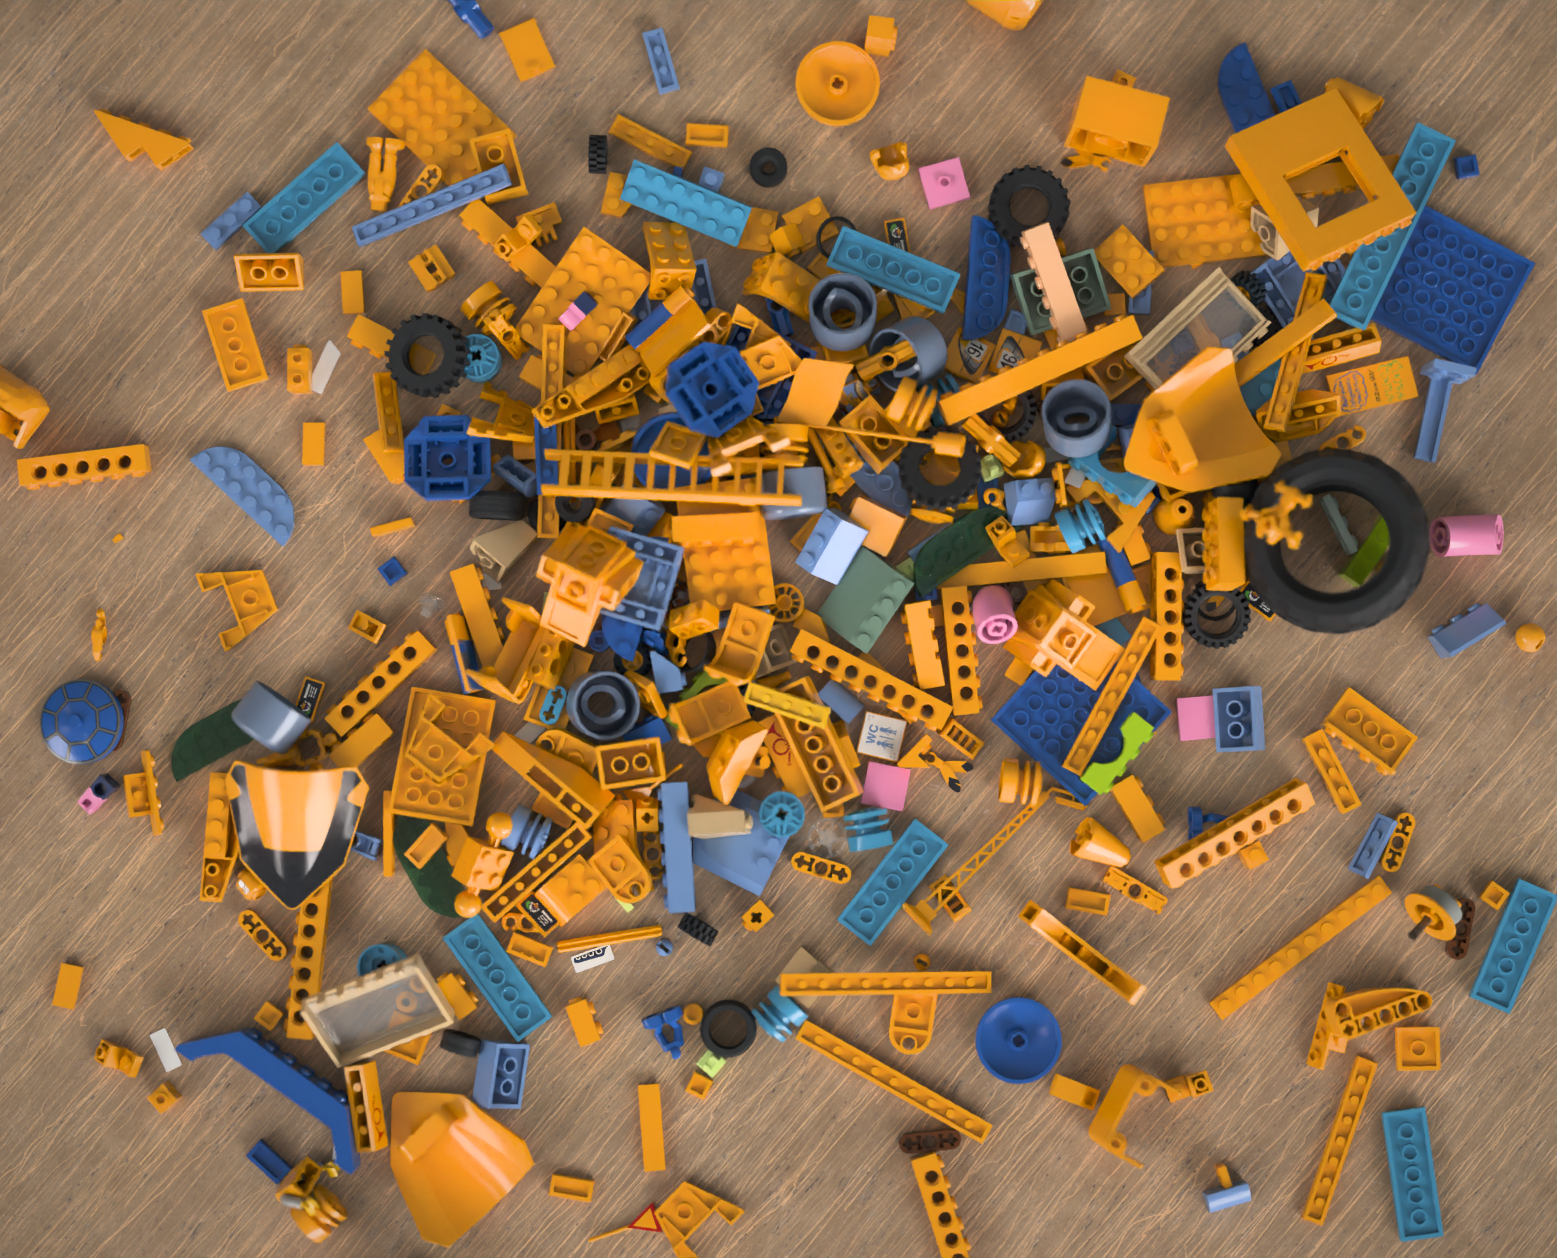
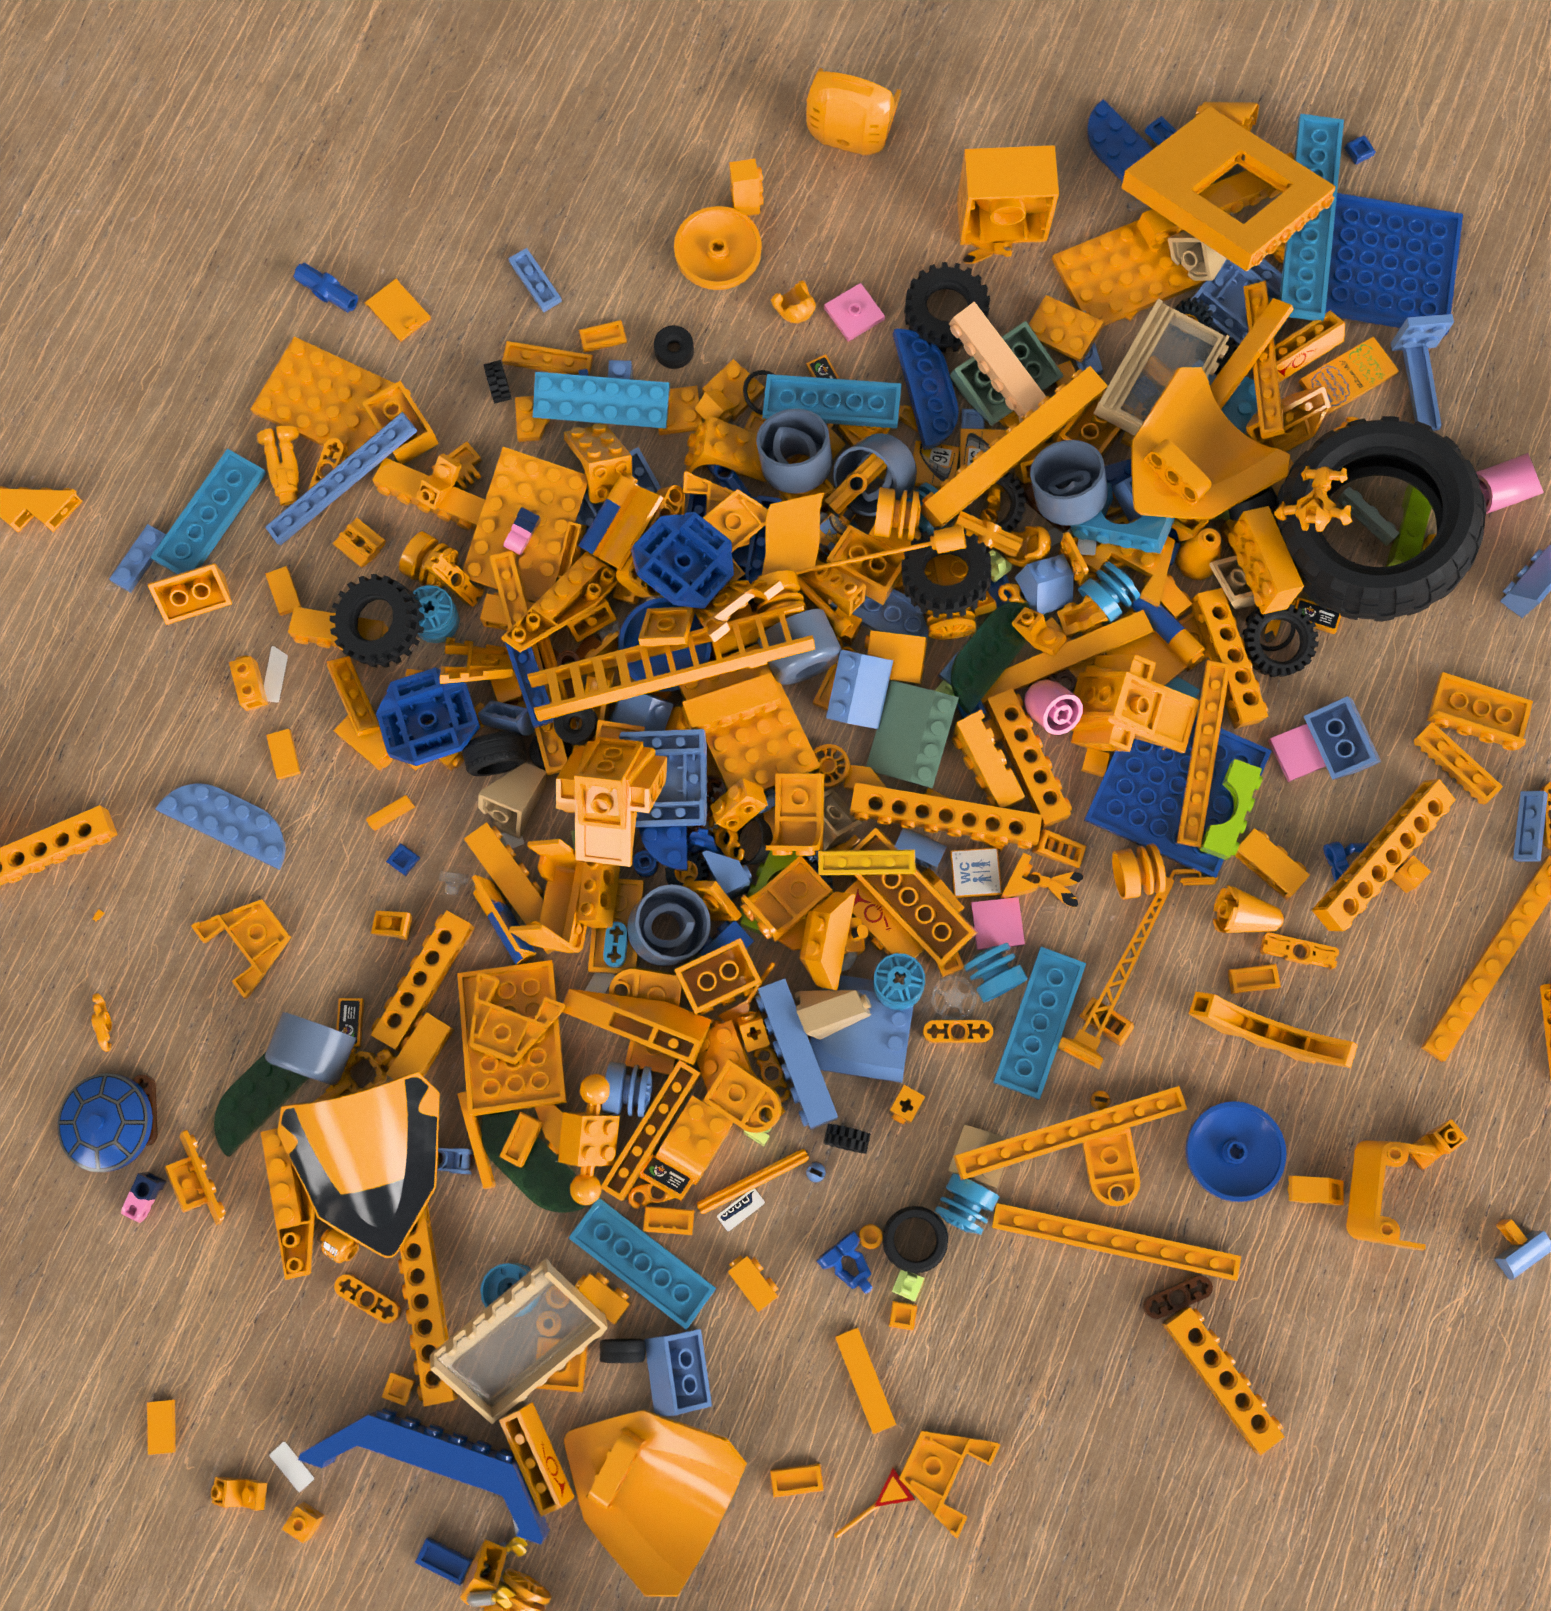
camera: 10 degrees left, 10 degrees down
(235, 344) = (174, 678): light orange plate -> none

